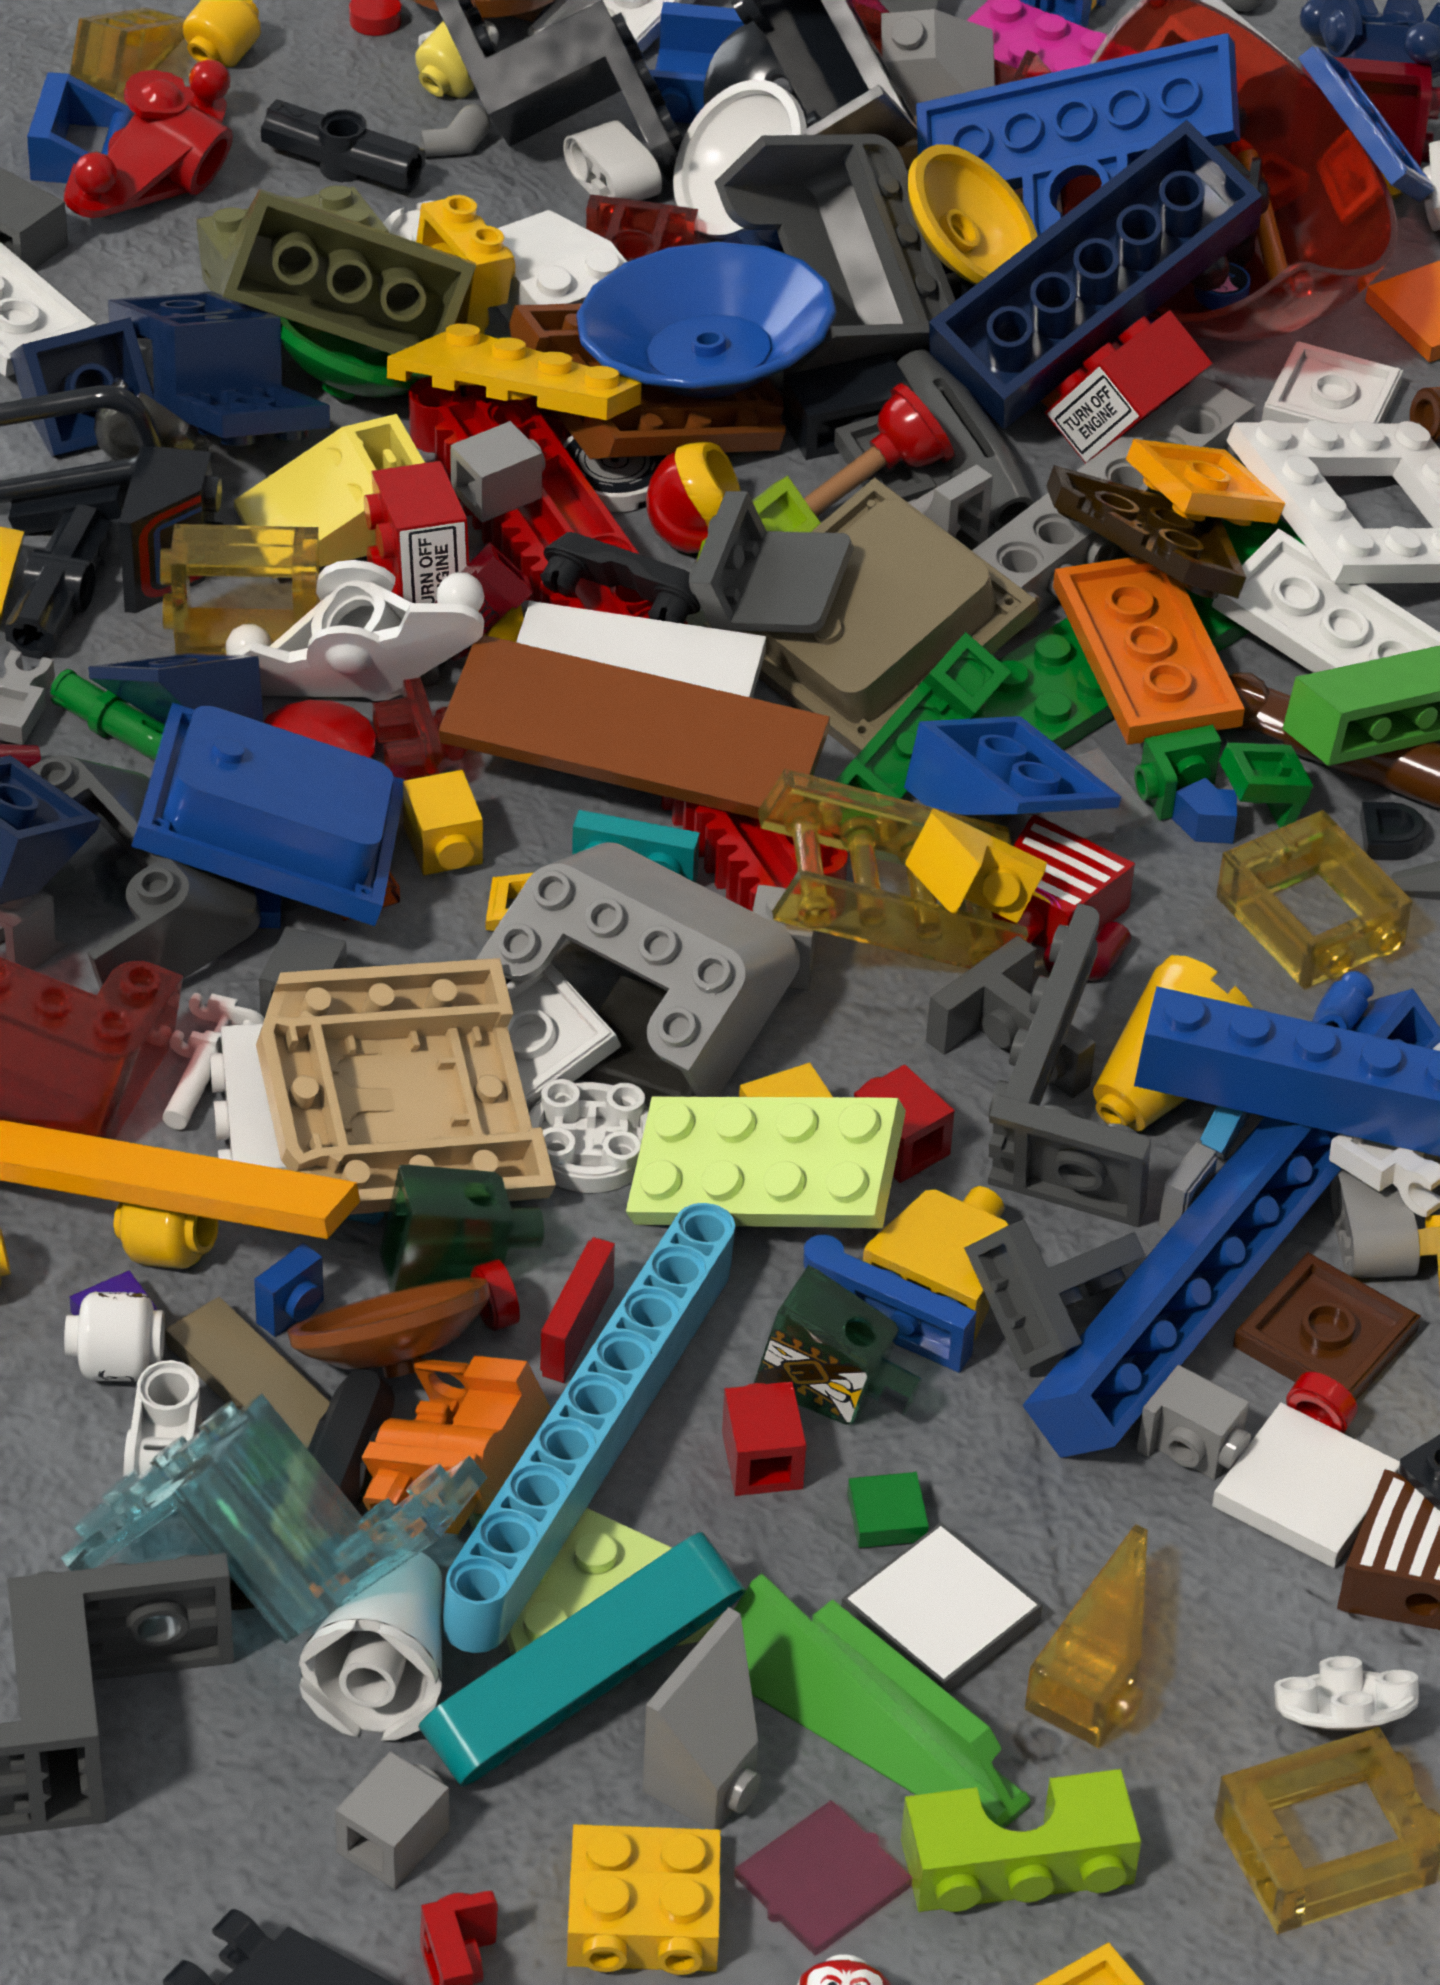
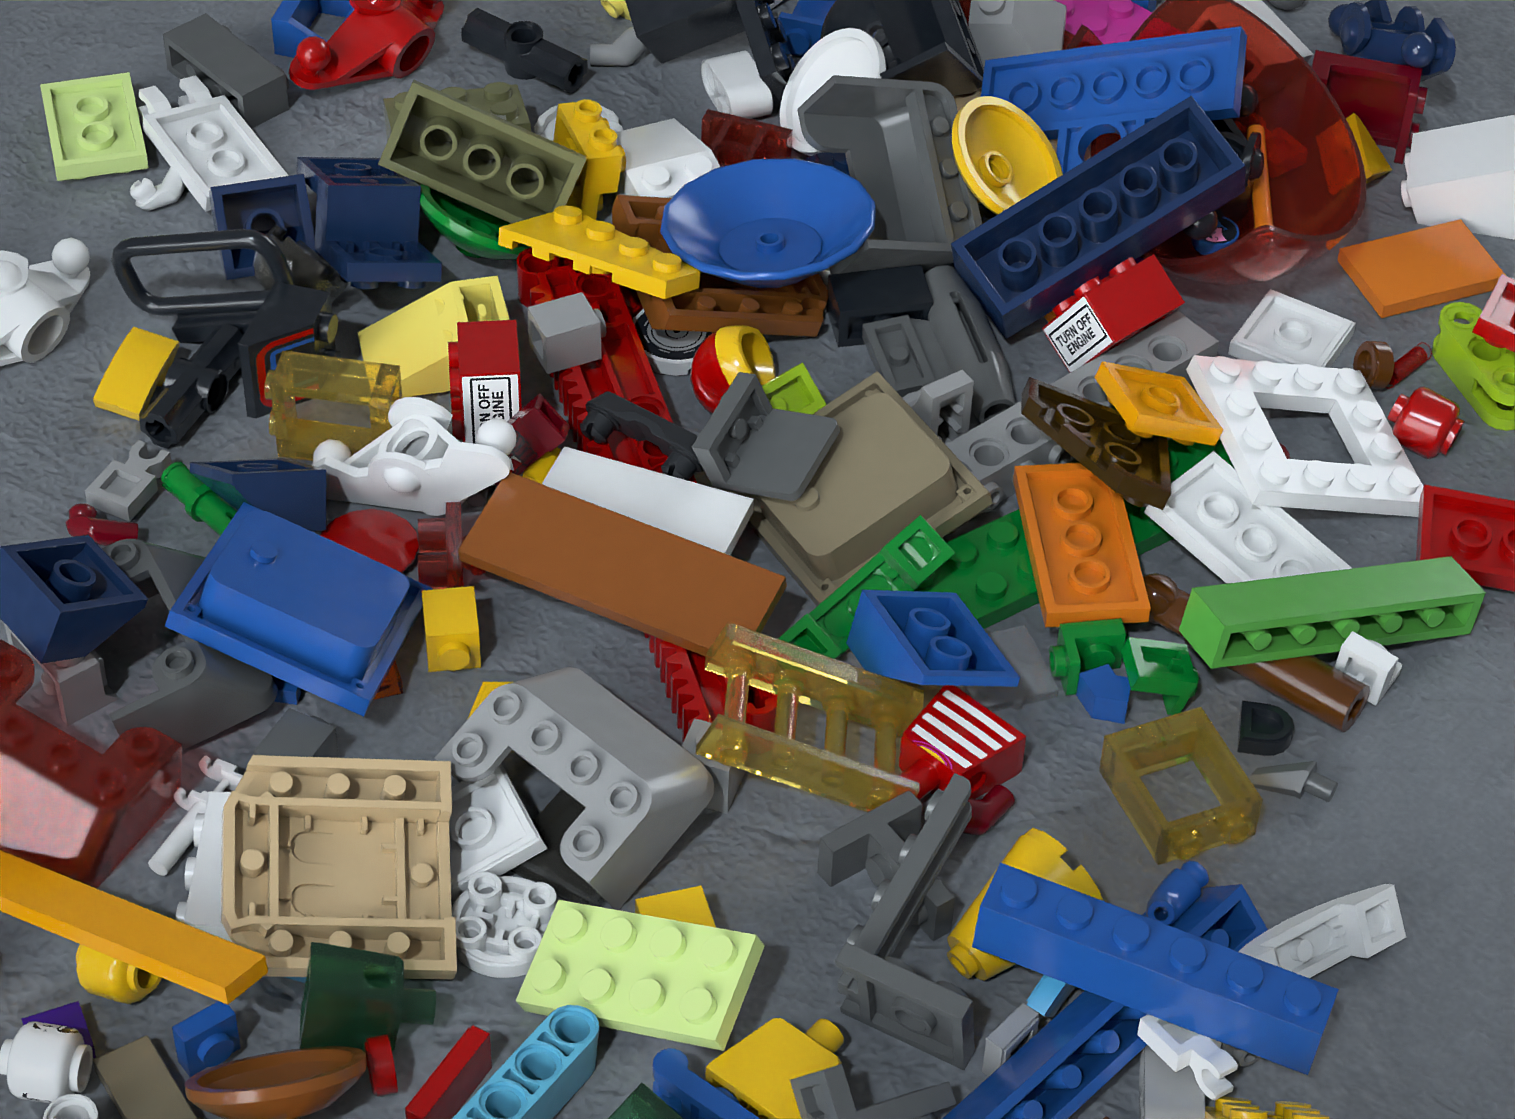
camera: 10 degrees right, 0 degrees up
(665, 845) = (621, 674): teal plate -> none
(906, 435) = (914, 338): red piece -> none
(927, 1120) = (788, 950): red brick -> none
(972, 865) = (875, 722): yellow slope -> none
(1367, 123) = (1357, 113): blue tile -> none

